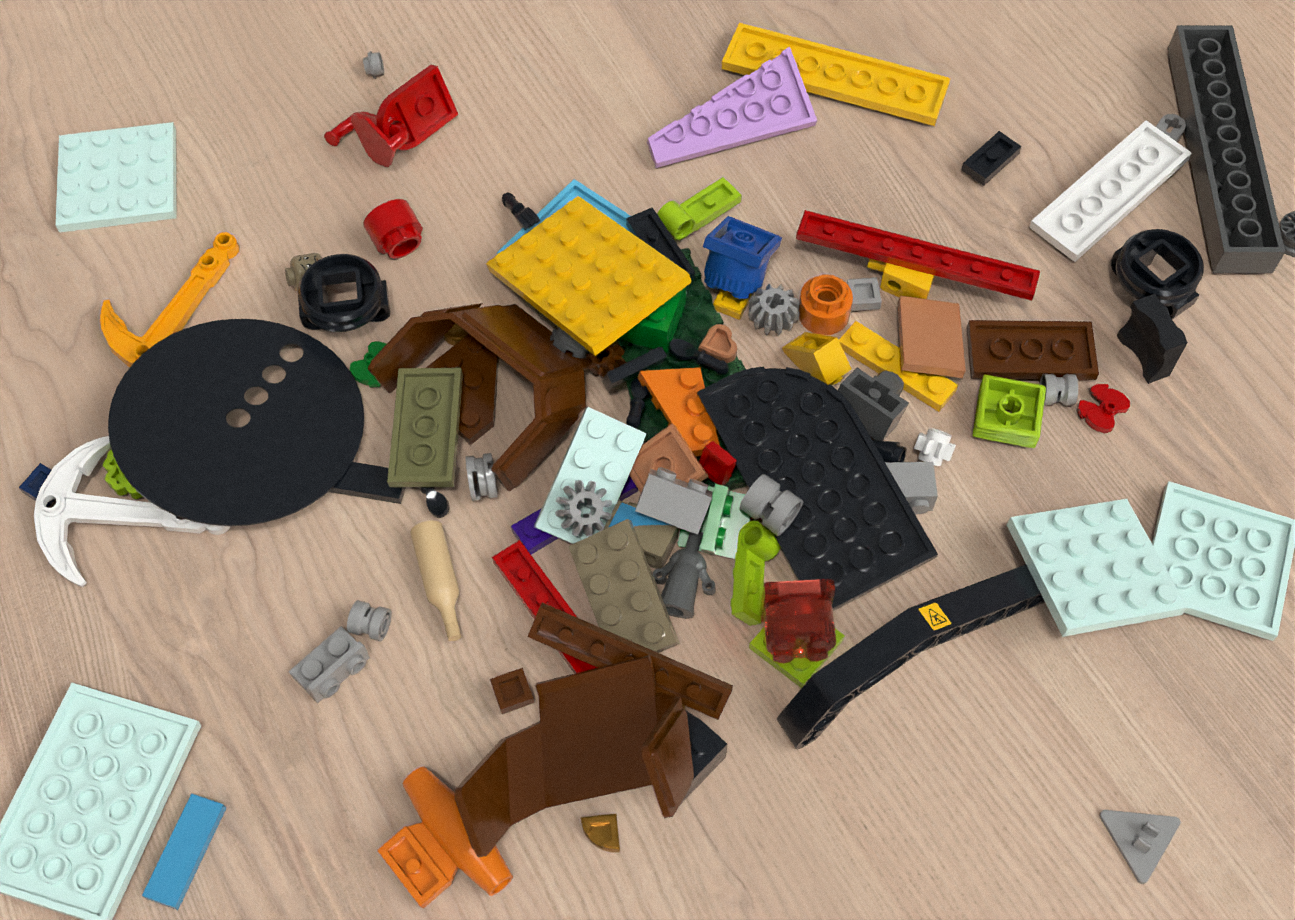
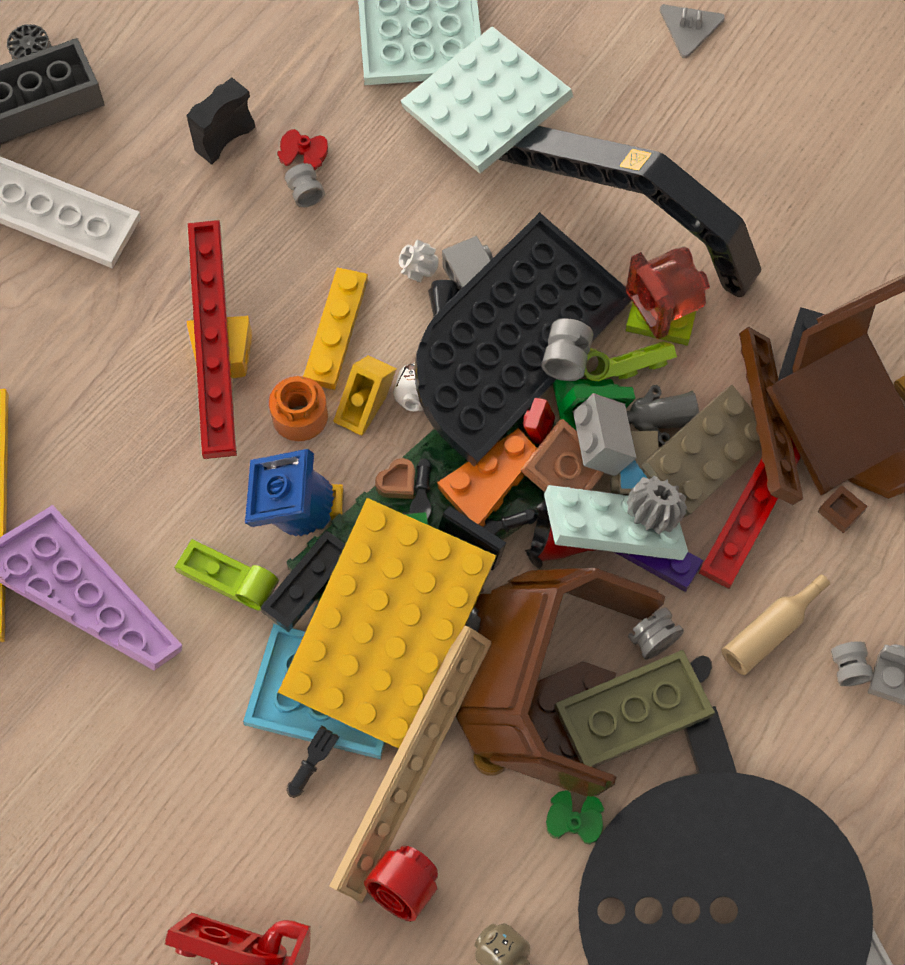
camera: 115 degrees left, 5 degrees up
(346, 315) = (545, 912): black piece -> none
(479, 265) = (411, 763): none -> tan tile
(773, 309) = (338, 448): light grey gear -> none
(865, 294) = (264, 379): light grey plate -> none
(875, 400) = (397, 324): dark grey brick -> none
(930, 337) = (295, 303): nougat tile -> none
(991, 158) = (37, 324): black plate -> none
(1026, 405) = (353, 198): lime brick -> none
(1032, 349) = (267, 220): reddish brown plate -> none
(1175, 292) = (123, 158): black piece -> none

